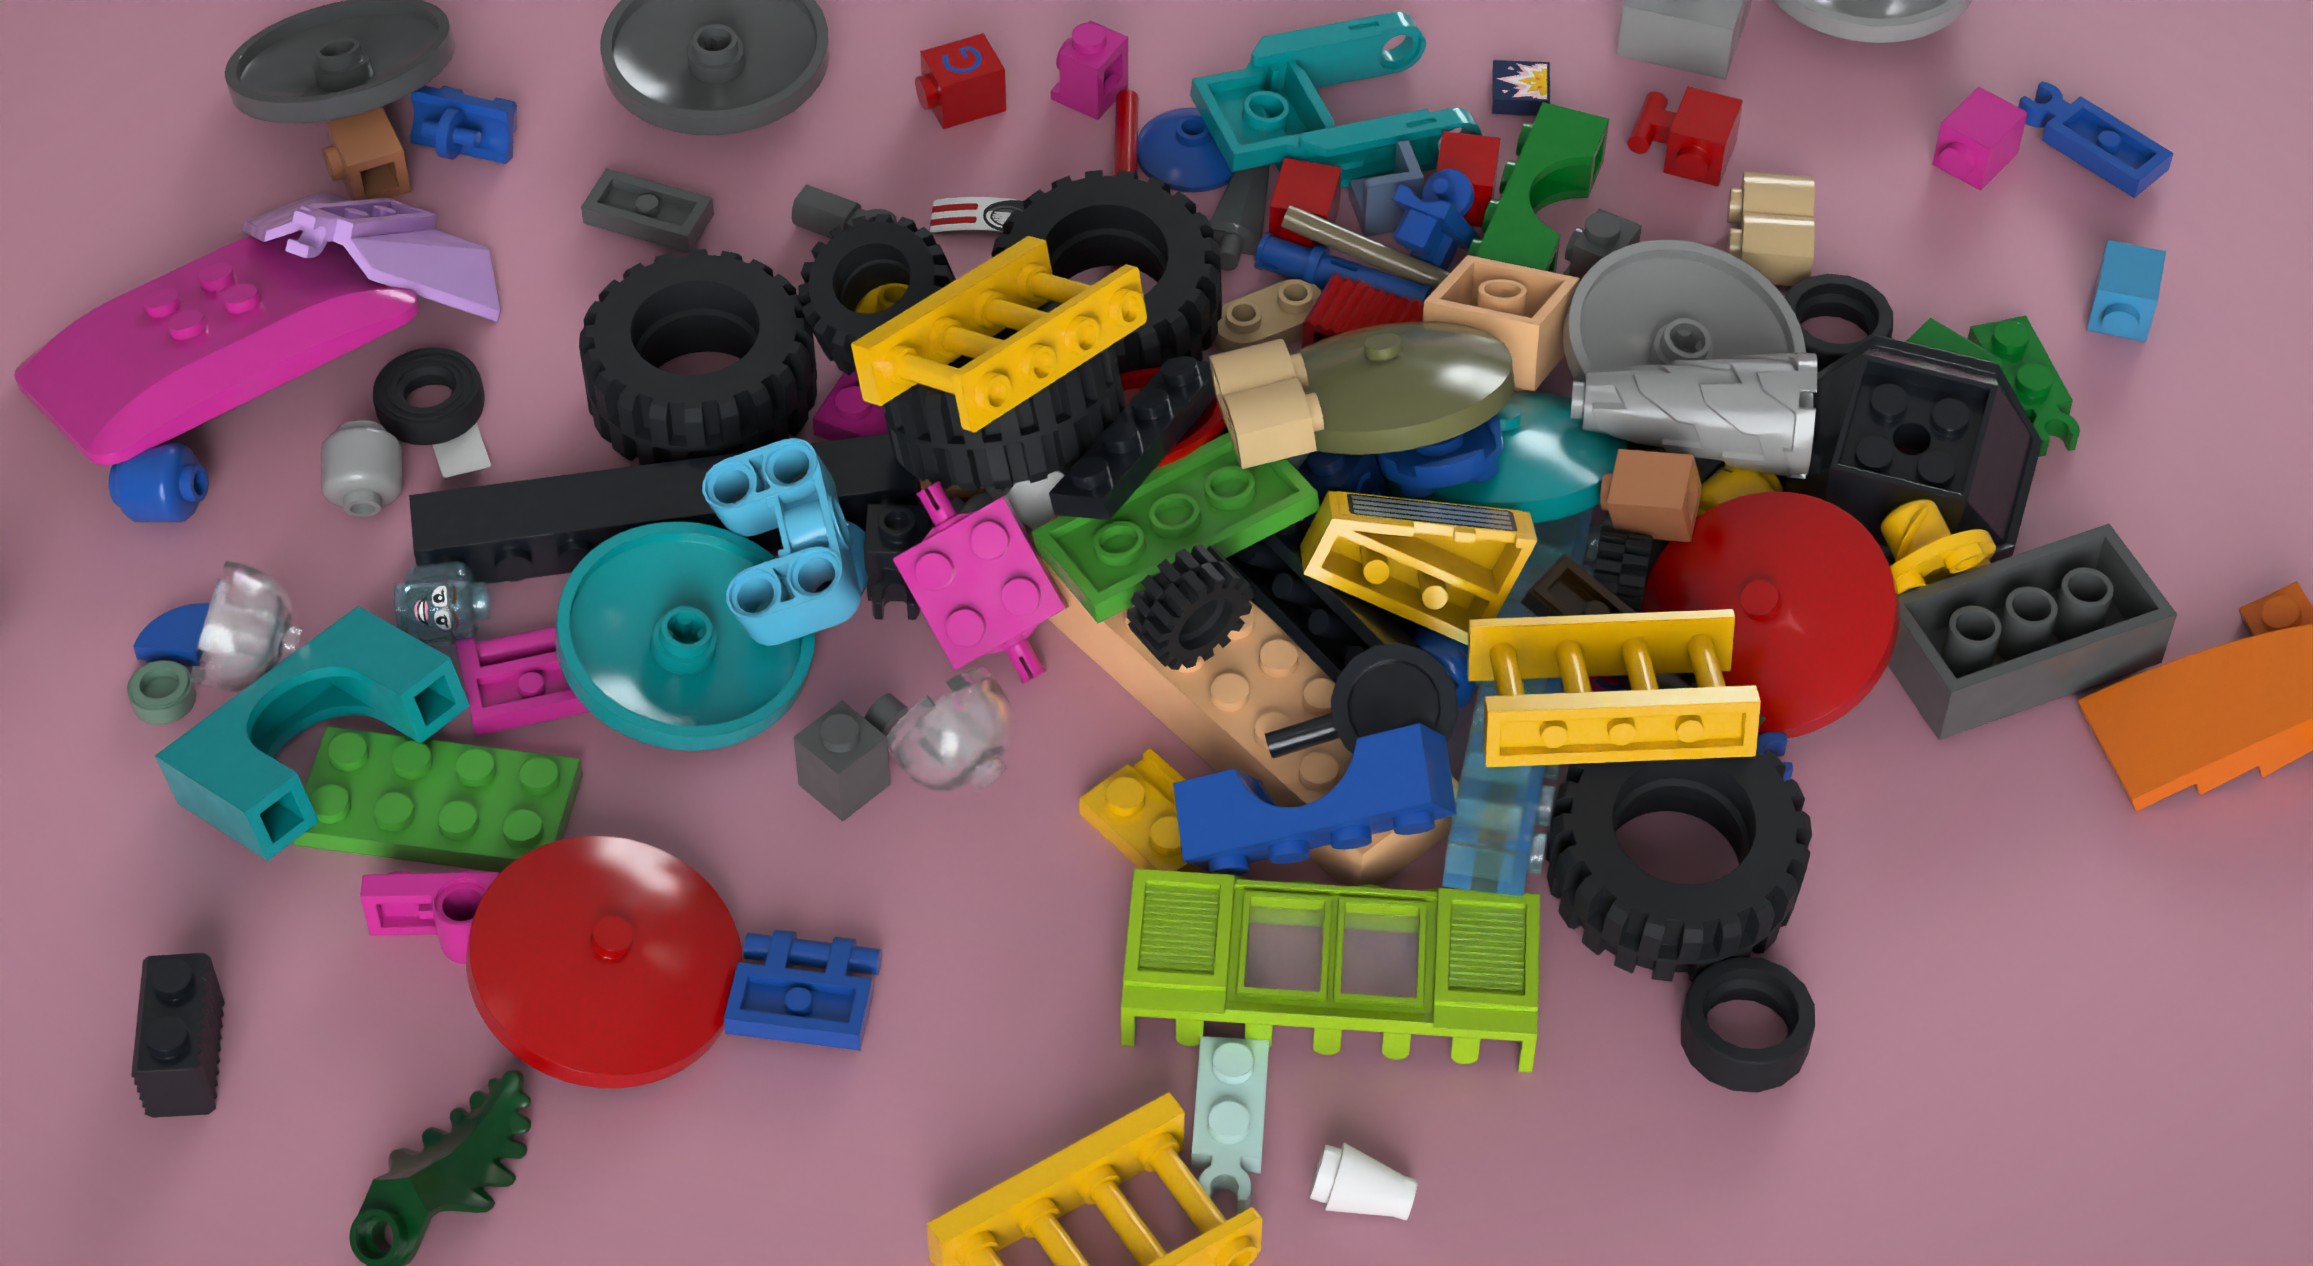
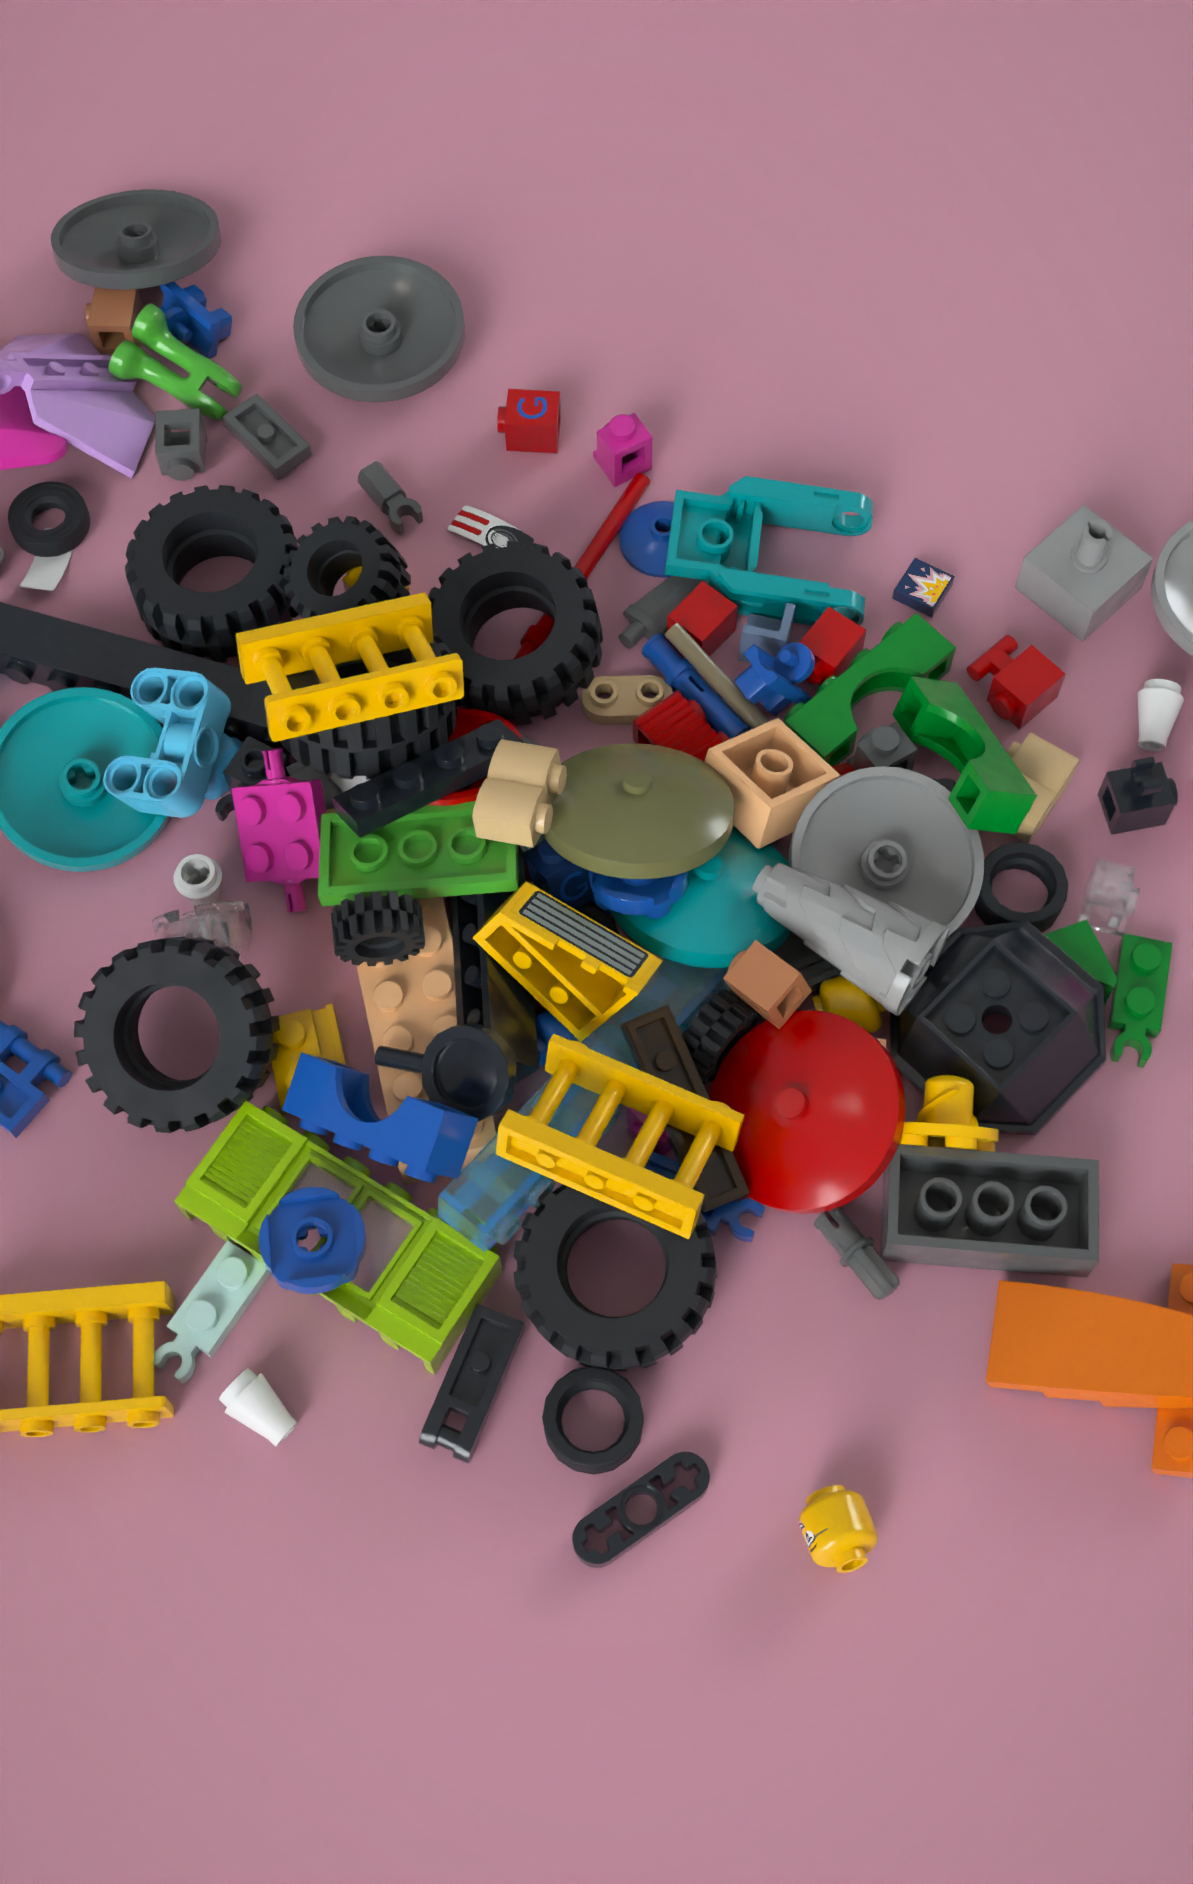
camera: 30 degrees right, 15 degrees up
(522, 167) = (152, 332): none -> bright green piece
(552, 266) = (180, 452): none -> dark grey brick
(845, 756) = (127, 914): dark grey brick -> none
(910, 671) = (199, 879): none -> white cone
(1066, 753) = (114, 1045): none -> black tyre
(1318, 995) = (319, 1270): none -> blue plate
(1587, 1048) = (472, 1381): none -> black plate
(1736, 215) = (991, 787): none -> green arch
(1856, 108) = (1157, 712): none -> white cone
(1862, 1116) = (681, 1496): none -> black beam
(1893, 192) = (1137, 796): none -> black brick
(1912, 738) = (858, 1253): none -> dark grey axle
(1932, 288) = (1109, 897): none -> clear brick
(2084, 1001) = (838, 1528): none -> yellow head

